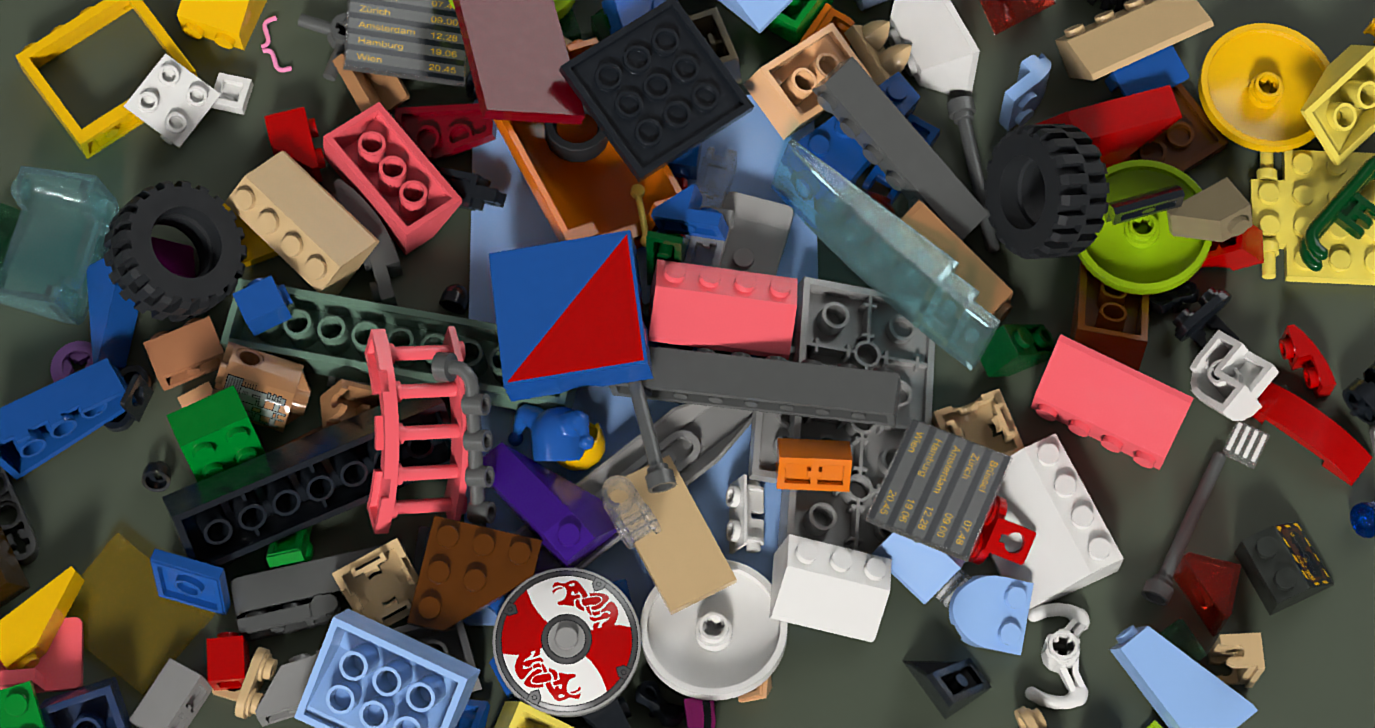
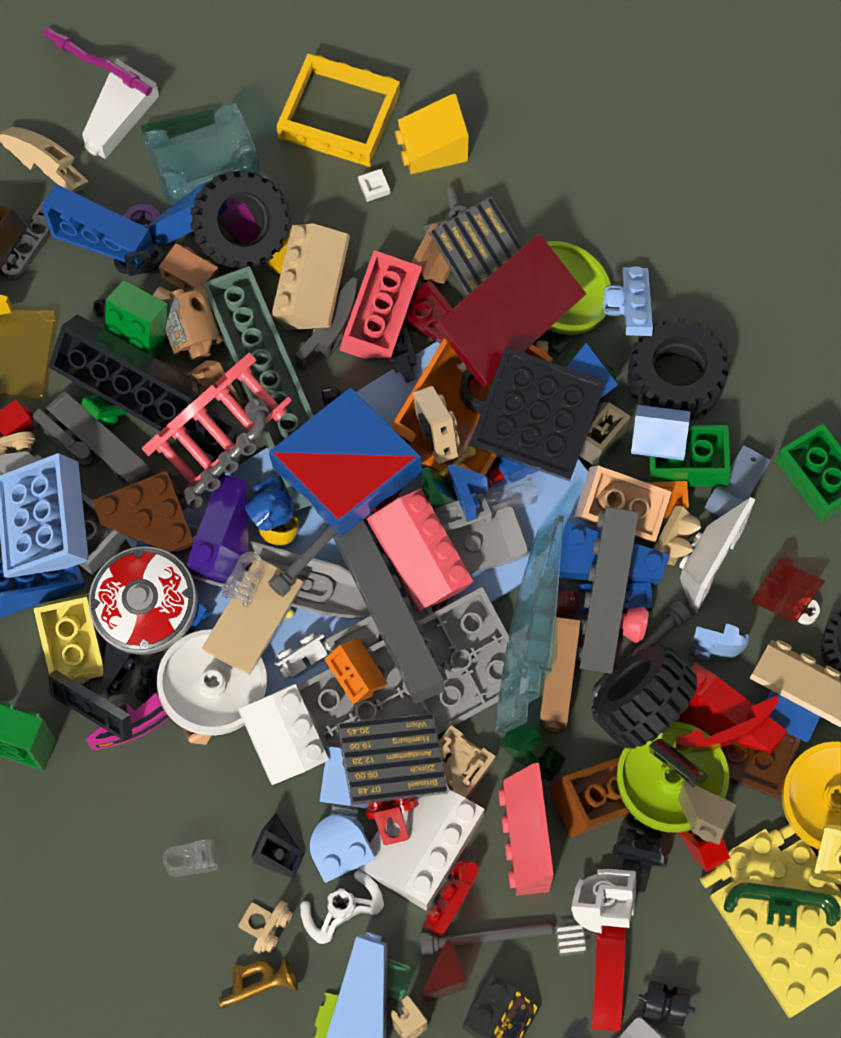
camera: 55 degrees right, 0 degrees up
(172, 100) = (341, 155): white hinge -> none
(190, 582) = (42, 367): blue tile -> none
(263, 304) = (237, 288): blue brick -> none
(267, 50) = (420, 188): bright pink piece -> none
(294, 134) = (366, 236): red slope -> none
(368, 595) = (103, 471): tan brick -> none
(595, 195) = (436, 424): none -> tan piece
(951, 153) = (634, 623): none -> coral cone
(1127, 532) = (451, 897): none -> red hinge
(1140, 98) = (696, 741): none -> red slope
(1304, 353) = (660, 935): red slope -> none

